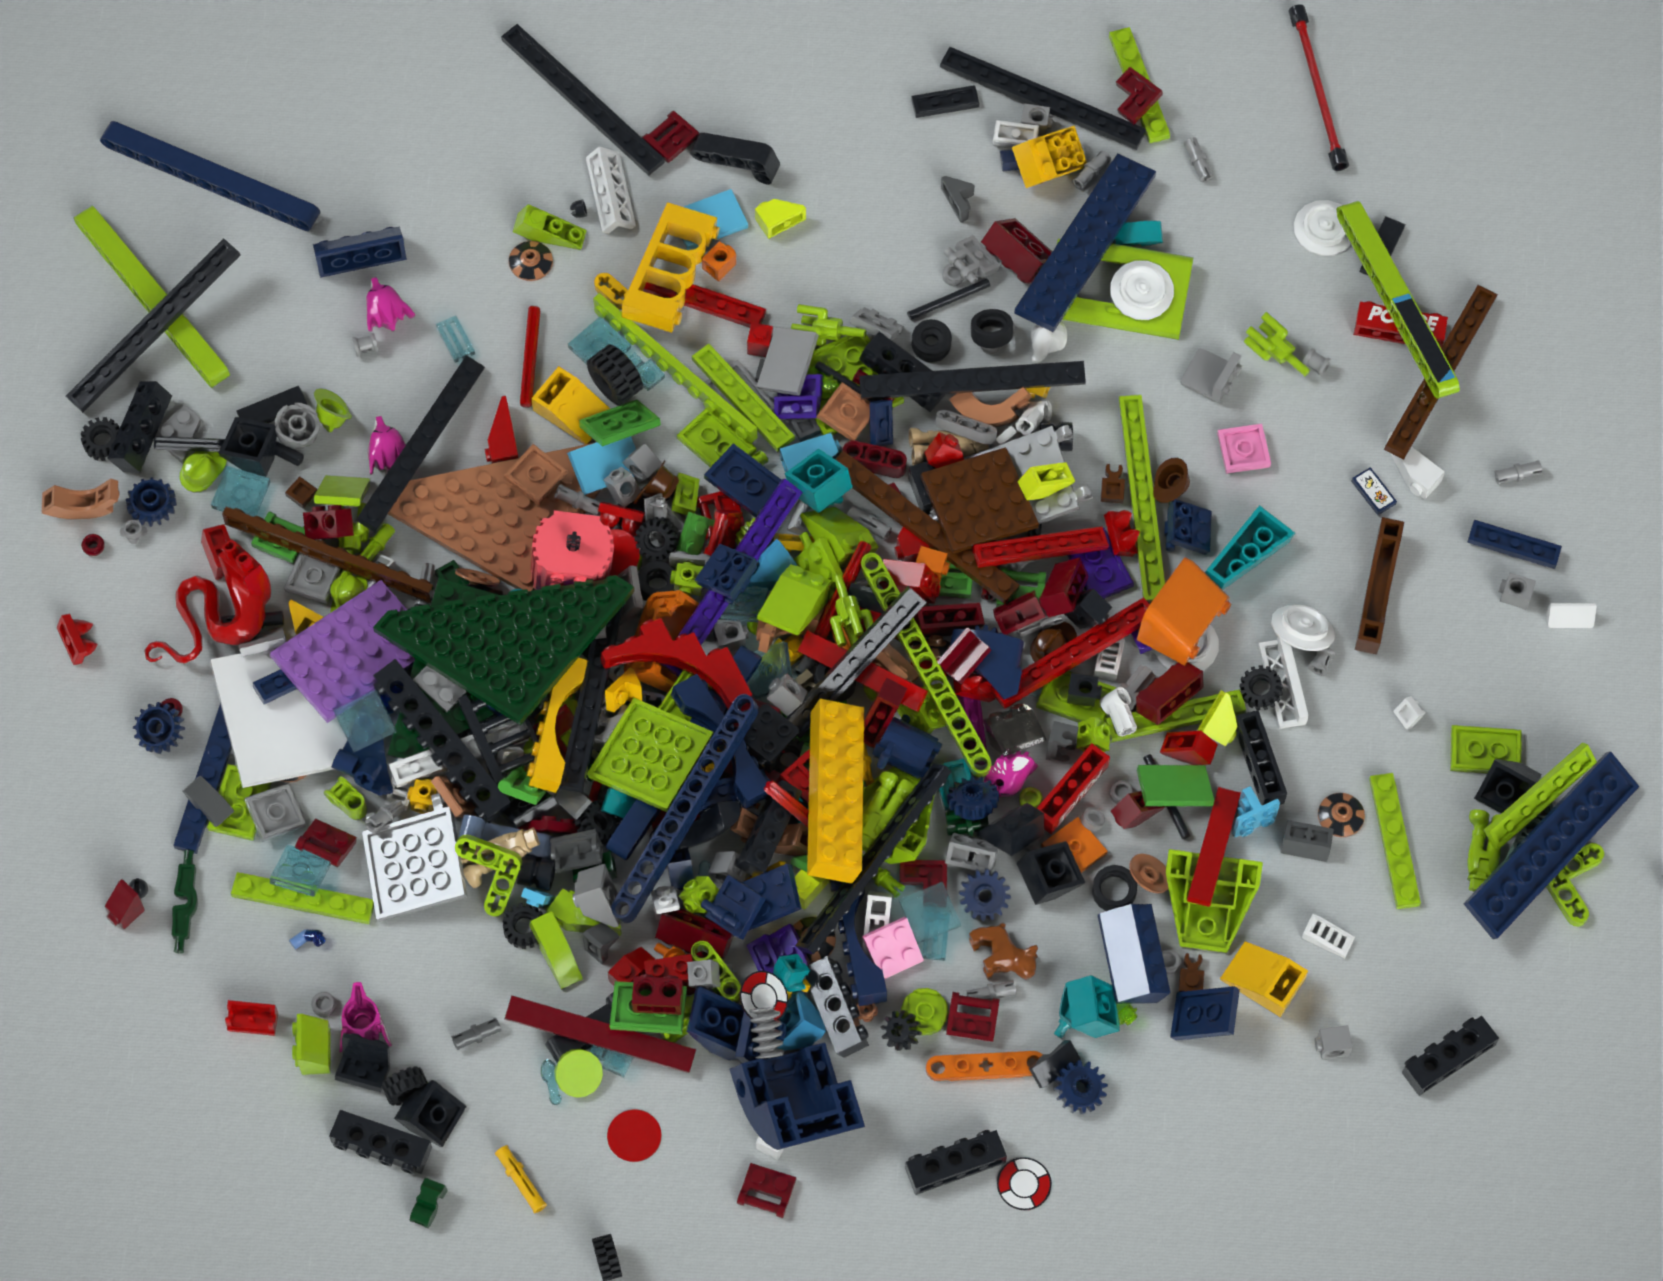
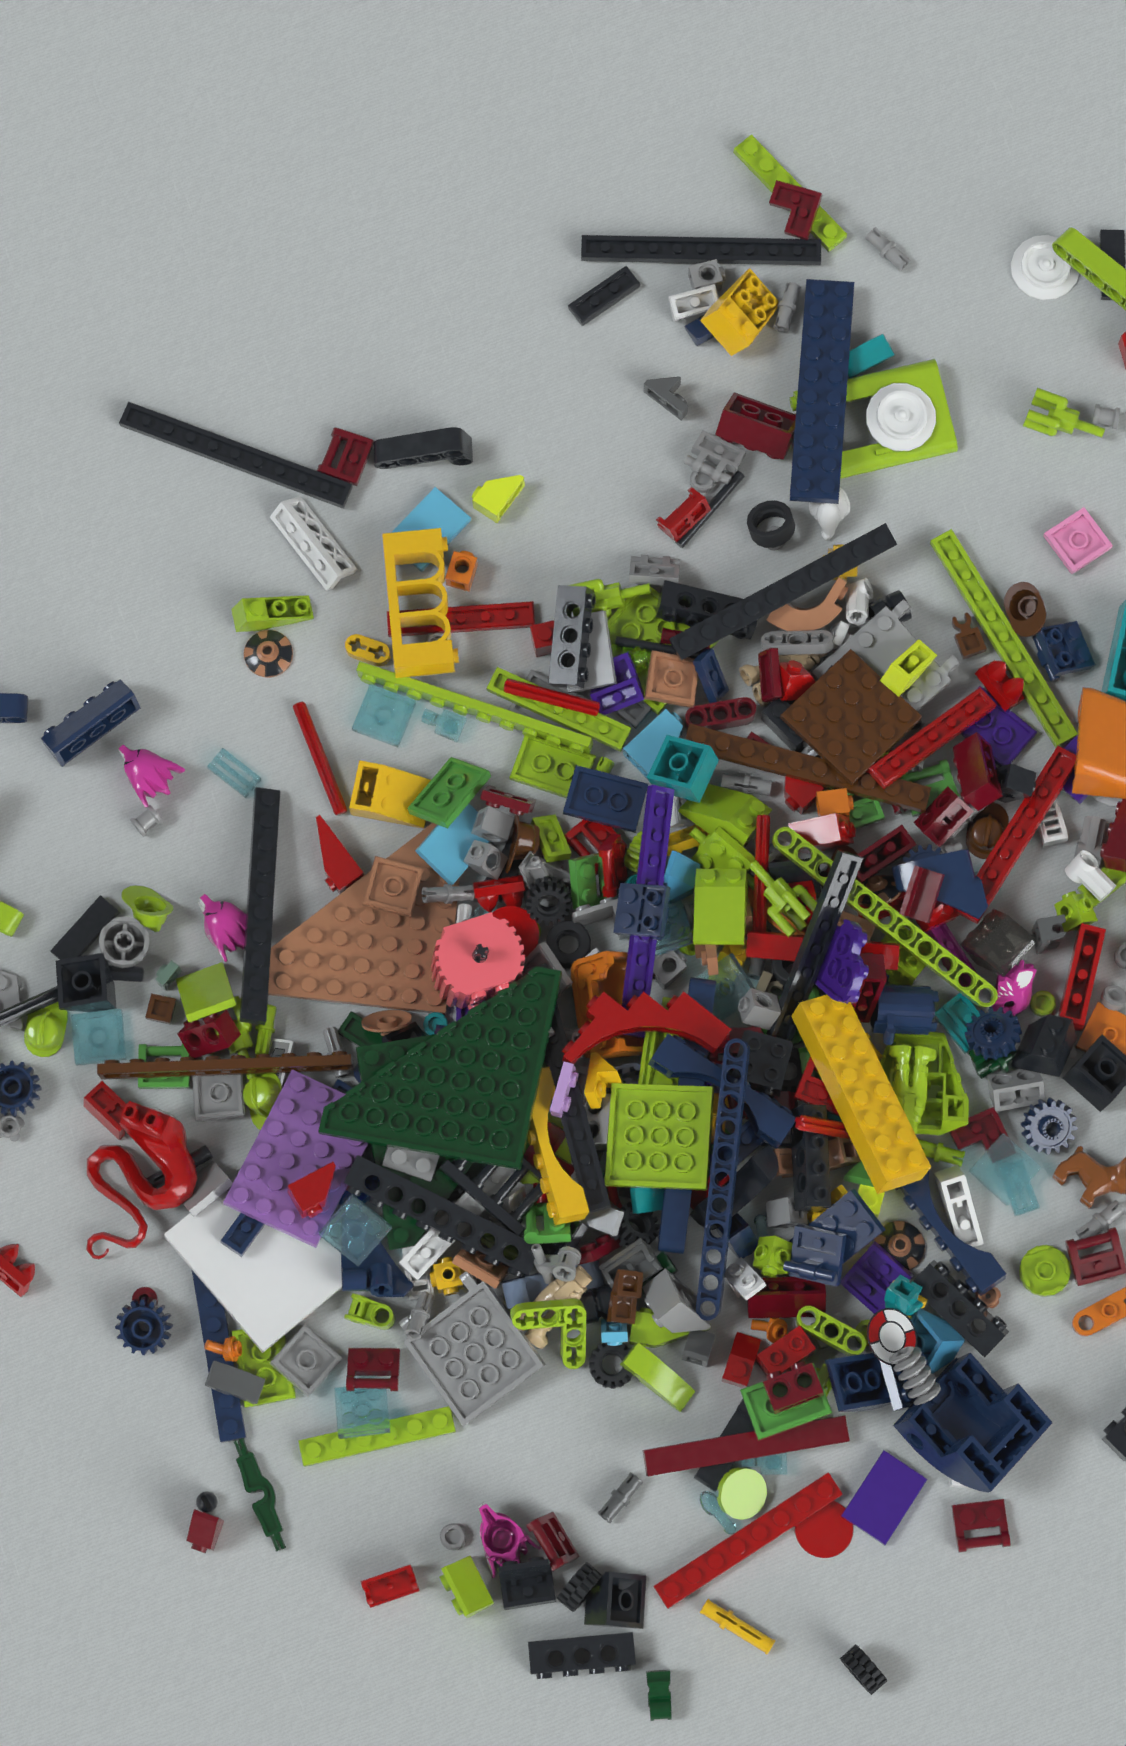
camera: 20 degrees left, 10 degrees up
(217, 776) = (230, 1350): none -> orange plate
(302, 616) = (230, 1141): yellow slope -> none
(308, 935) = (402, 1473): arm -> none
(320, 468) = (167, 974): none -> sand green plate
(347, 673) = (312, 1190): none -> red slope
(402, 1039) = (553, 1540): none -> dark red plate
(513, 819) = (556, 1264): none -> light grey piece
(559, 870) = (624, 1296): none -> reddish brown slope
(565, 1115) = (748, 1540): none -> red plate
(580, 209) = (290, 577): black hinge -> none
(585, 684) = (567, 1079): none -> lavender plate
(614, 374) = (420, 743): black tyre -> none
(670, 455) = (517, 804): none -> dark red plate
(685, 577) = (600, 922): lime brick -> none
(696, 1132) = (884, 1497): none -> dark purple tile
(703, 974) = (826, 1344): light grey brick -> none
(740, 383) = (551, 697): none -> red axle
(779, 330) = (564, 625): none -> brick
(871, 681) = (843, 966): none -> dark purple plate
(873, 858) = (930, 1137): black plate -> none
(893, 947) = (986, 1221): bright pink plate -> none
(894, 1026) = (1030, 1293): black gear -> none
(924, 294) = (685, 516): none -> red hinge
(928, 352) = (710, 575): black tyre -> none
(928, 440) = (769, 675): none -> dark red tile
(1055, 695) = (1038, 878): lime tile -> none
(1080, 681) = (1036, 876): black brick -> none
(1211, 374) = (1009, 475): light grey bracket -> none
(1337, 155) = (1023, 184): red hose -> none

